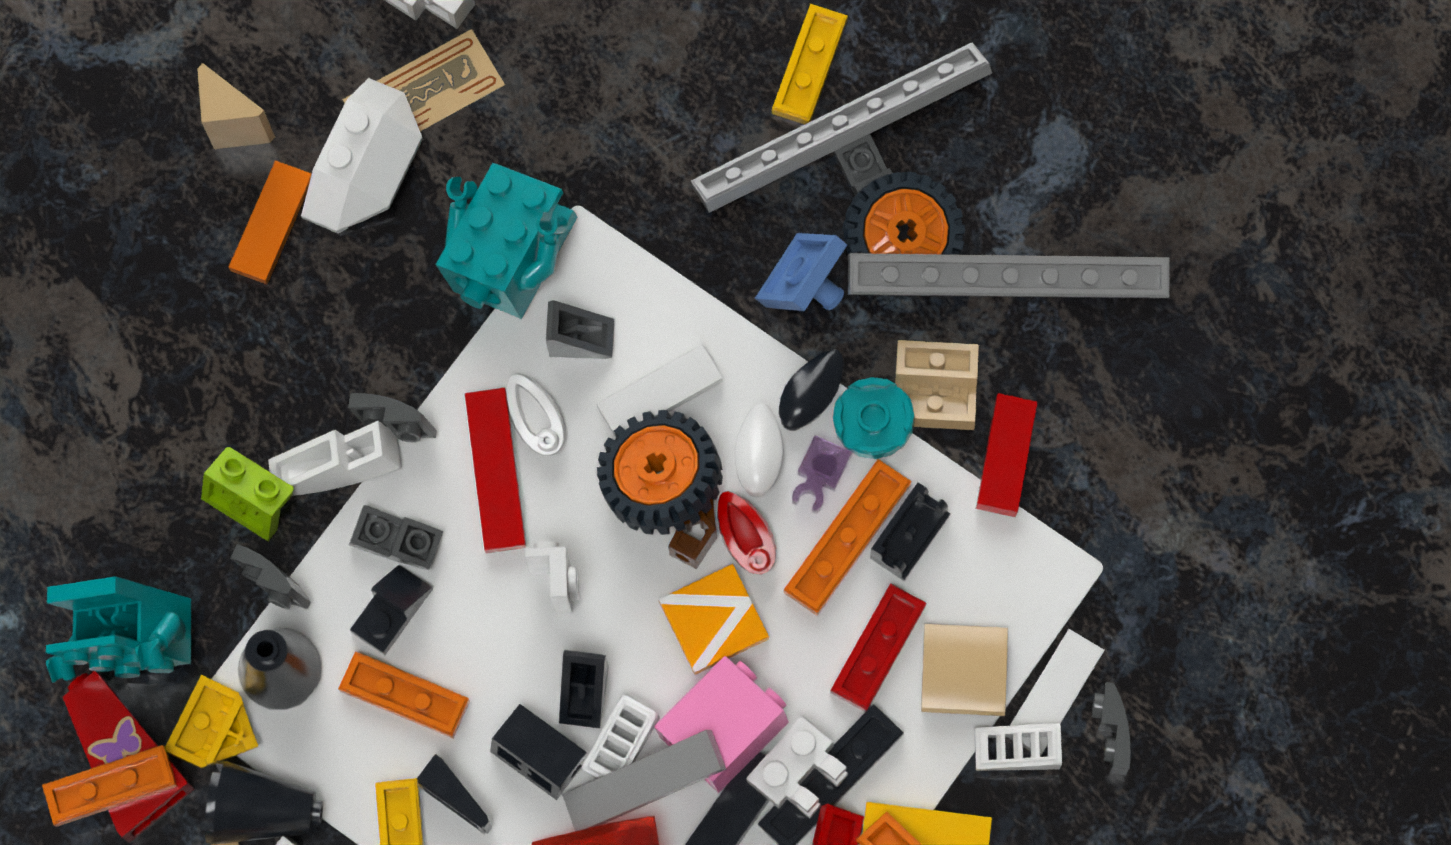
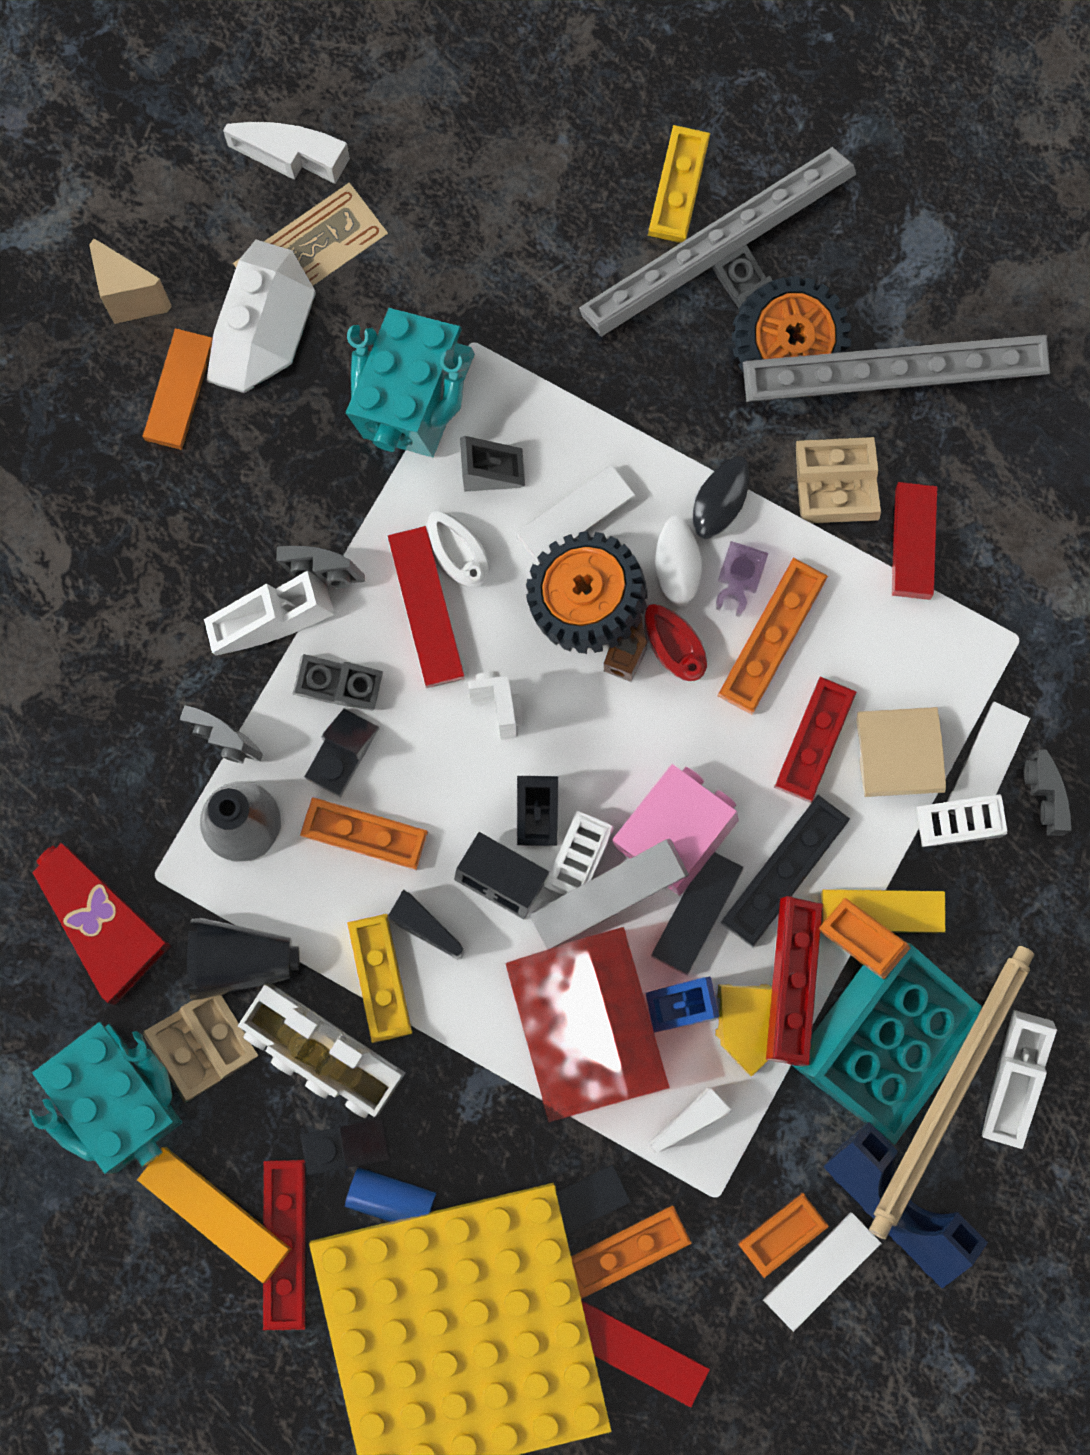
camera: 10 degrees left, 5 degrees up
(109, 785) = (89, 954): orange tile -> none
(120, 628) = (81, 801): teal torso -> none
(211, 726) = (181, 884): yellow slope -> none
(245, 492) = (186, 653): lime bracket -> none
(713, 619) = (654, 728): light orange tile -> none
(790, 763) = (746, 860): white plate -> none
(803, 274) = (700, 386): medium blue tile -> none
(873, 418) = (784, 518): teal tile -> none
(910, 532) = (833, 625): black hinge -> none

